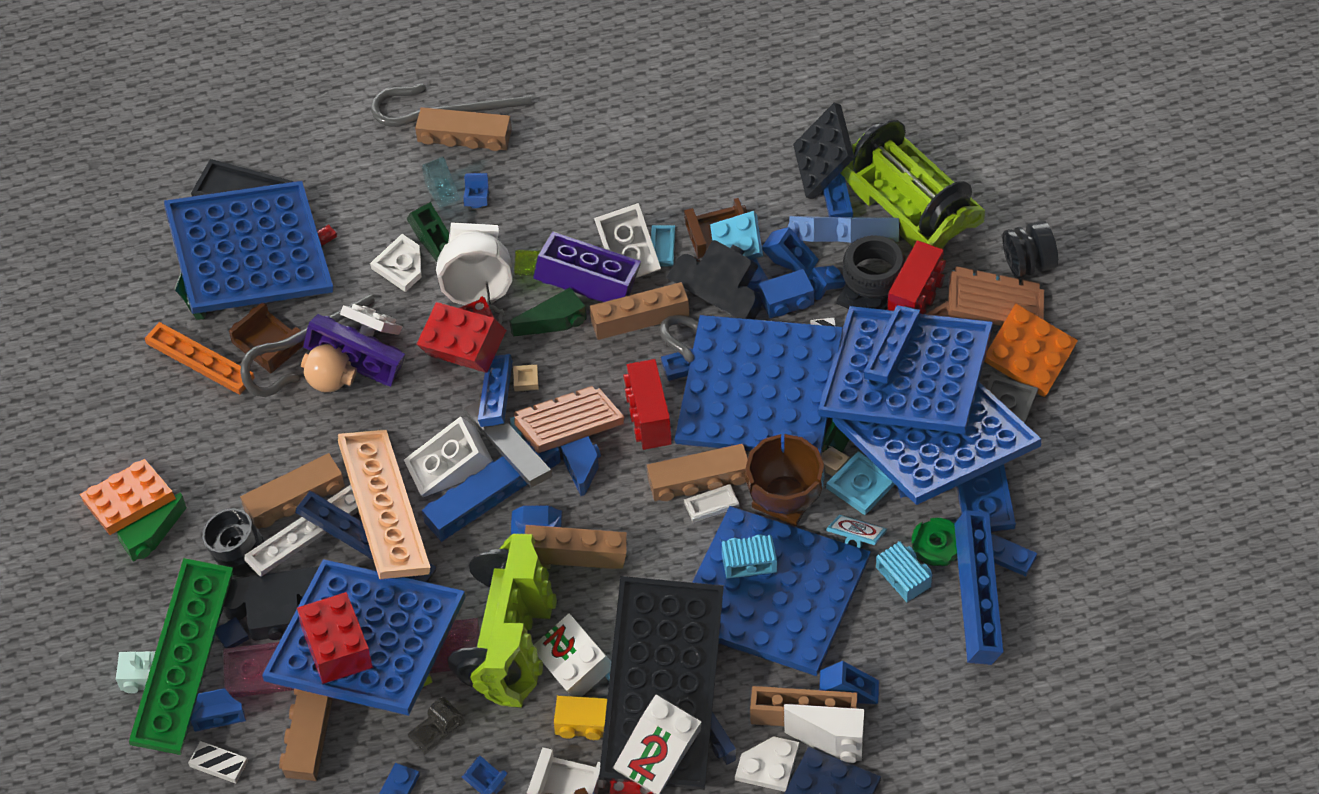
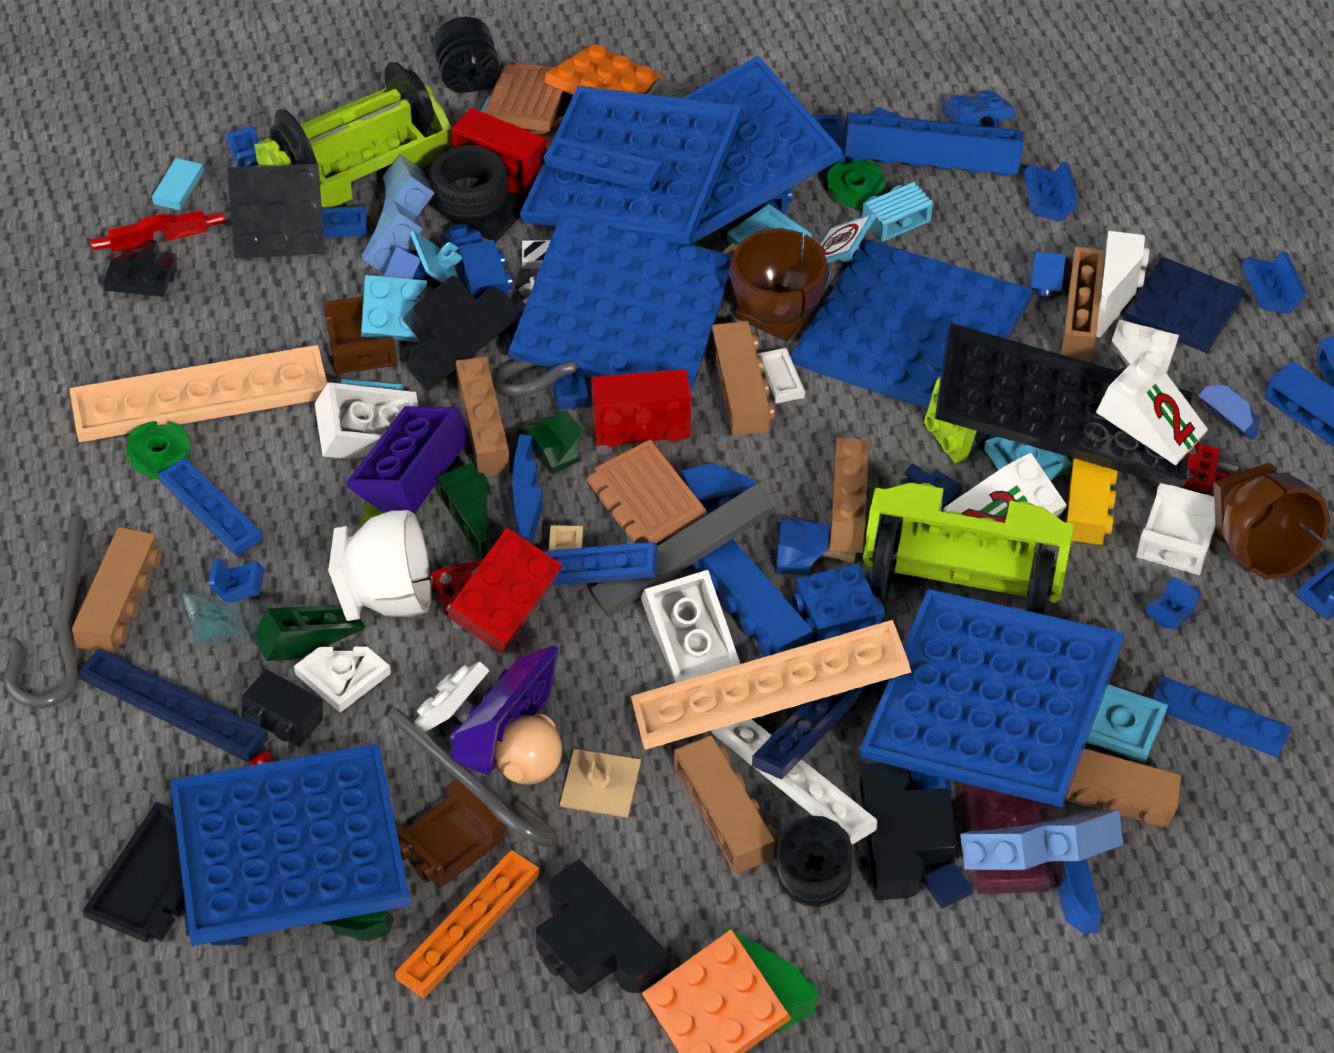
camera: 90 degrees left, 5 degrees down
(133, 670) = (1011, 983): light aqua brick -> none
(181, 656) = (1007, 917): green plate -> none
(187, 427) = (596, 936): none -> black brick
(218, 762) = (1148, 900): white tile -> none
(245, 687) = (1033, 844): none -> medium blue arch
(317, 423) = (600, 783): none -> tan piece
(334, 637) = (1016, 706): red brick -> none
(363, 231) = (282, 708): none -> black brick
(370, 177) = (174, 705): none -> dark blue plate
(373, 744) = (1127, 723): none -> medium azure plate
(464, 543) = (837, 602): none -> blue brick
(544, 168) = (210, 507): none -> blue plate
(558, 347) = (526, 494): none -> blue slope
(595, 141) = (148, 435): none -> green plate
(597, 612) = (951, 488): none -> dark blue plate
(615, 359) = (555, 440): none -> dark green slope
(651, 145) = (198, 392): none -> light nougat plate
(749, 556) = (882, 325): medium azure brick -> none
(769, 91) = (141, 272): none -> black plate
(788, 256) = (437, 261): none -> medium azure piece
(807, 85) = (173, 227): none -> red piece
(867, 98) = (177, 184): none -> medium azure tile
(914, 127) = (242, 146): none -> blue bracket
(946, 685) = (1051, 192): none -> blue bracket
(1038, 627) = (973, 108): none -> blue plate

